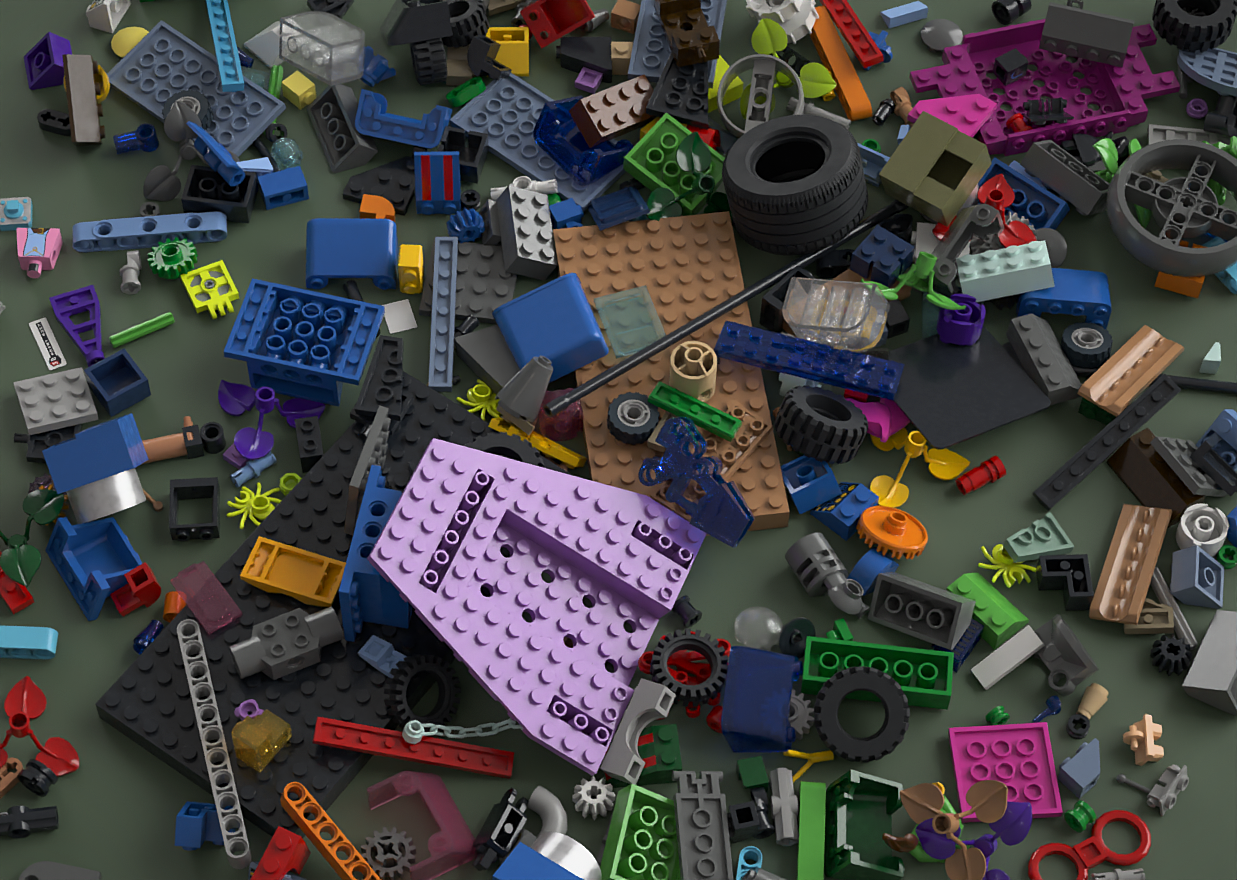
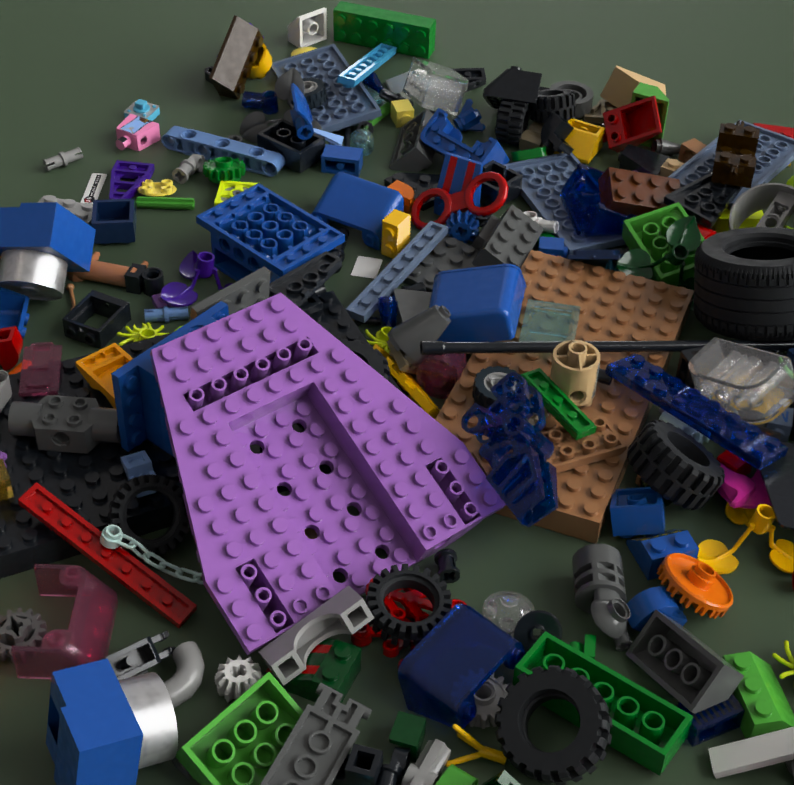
camera: 30 degrees right, 15 degrees down
(120, 315) = (157, 189): none -> light yellow dish
(280, 74) = (390, 96): none -> black axle
(450, 201) = (461, 200): none -> red bar
(466, 367) = (388, 310): none -> clear blue cone

